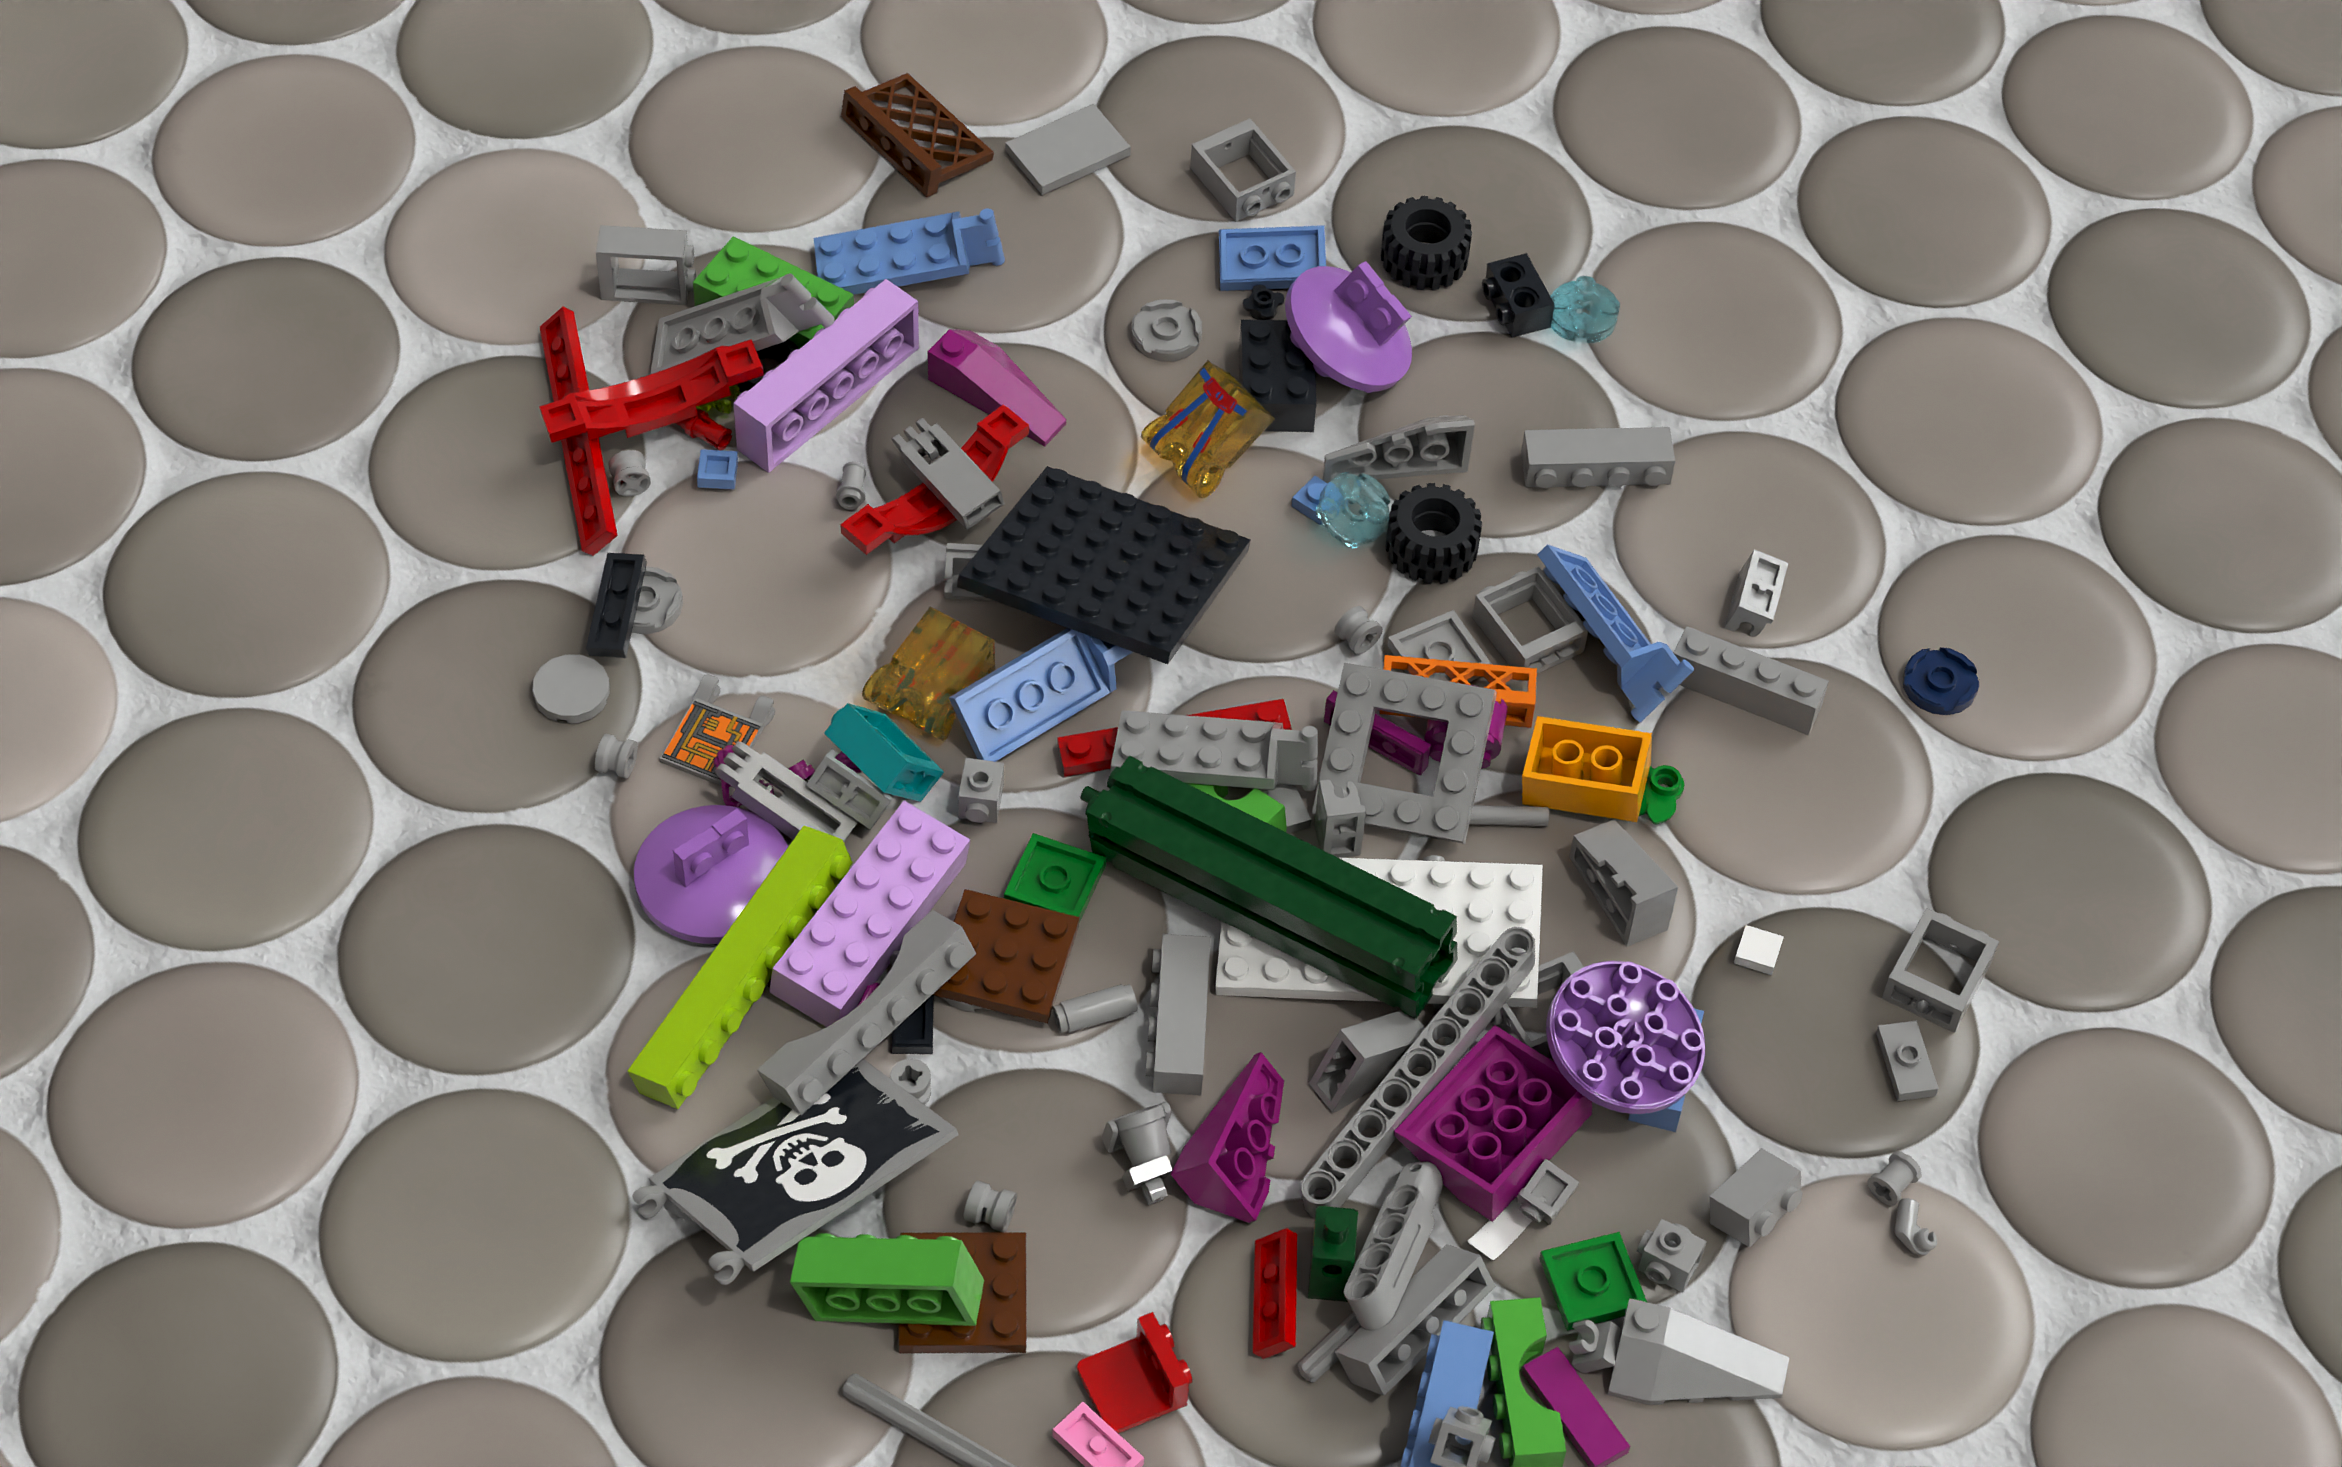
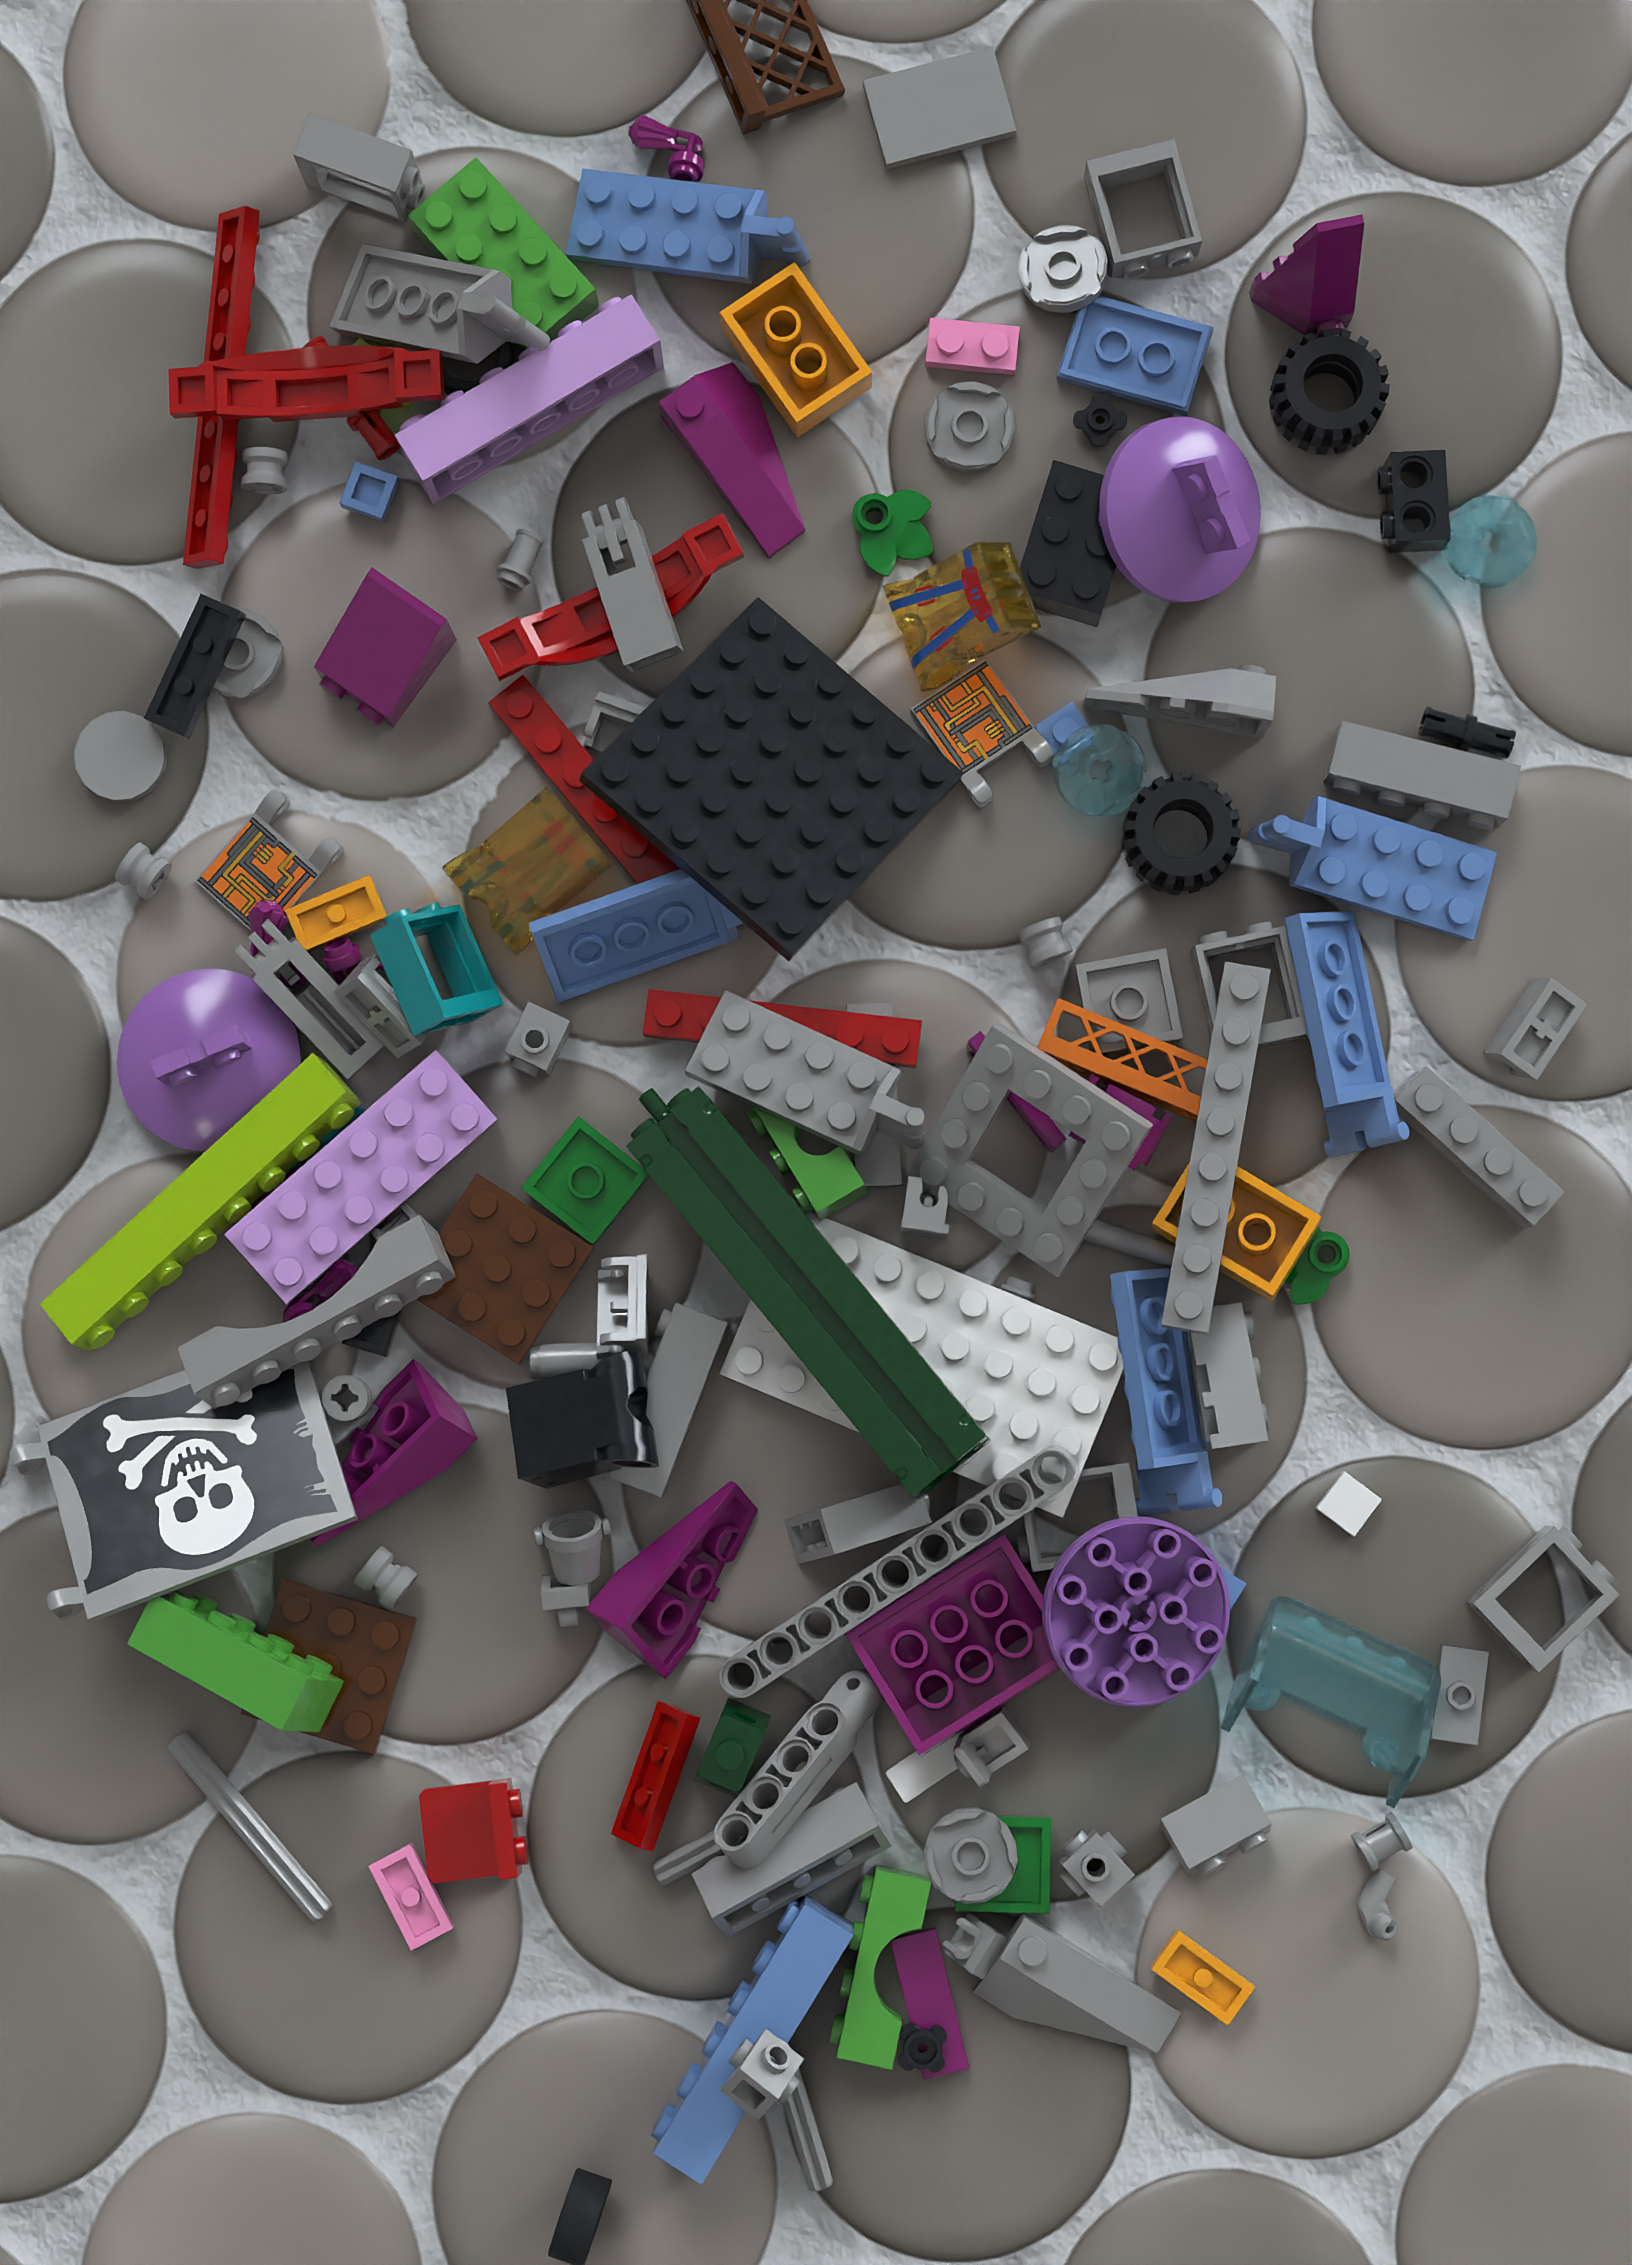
camera: 25 degrees right, 30 degrees up
(767, 555) = (383, 649): none -> magenta slope
(793, 741) = (337, 914): none -> light orange plate
(858, 208) = (685, 162): none -> magenta piece
(914, 597) = (563, 762): none -> red plate
(974, 1095) = (404, 1444): none -> magenta wedge
(1019, 303) = (796, 349): none -> light orange brick
(1122, 953) = (623, 1306): none -> light grey hinge
(1122, 1030) = (583, 1422): none -> black piece
(1132, 402) = (898, 533): none -> green plate
(1149, 281) = (972, 346): none -> bright pink plate
(1198, 218) = (1063, 269): none -> tile
(1252, 511) = (976, 724): none -> flag
(1390, 164) = (1317, 281): none -> magenta wedge
(1551, 713) = (1216, 1148): none -> light grey plate
(1564, 1273) = (970, 1855): none -> light grey tile
(1570, 890) = (1161, 1399): none -> medium blue hinge
(1589, 519) = (1383, 866): none -> medium blue hinge
(1592, 1425) = (912, 2057): none -> black plate
(1618, 420) = (1467, 732): none -> black pin
(1794, 1320) = (1202, 1977): none -> light orange plate
(1811, 1072) = (1346, 1678): none -> clear light blue windscreen

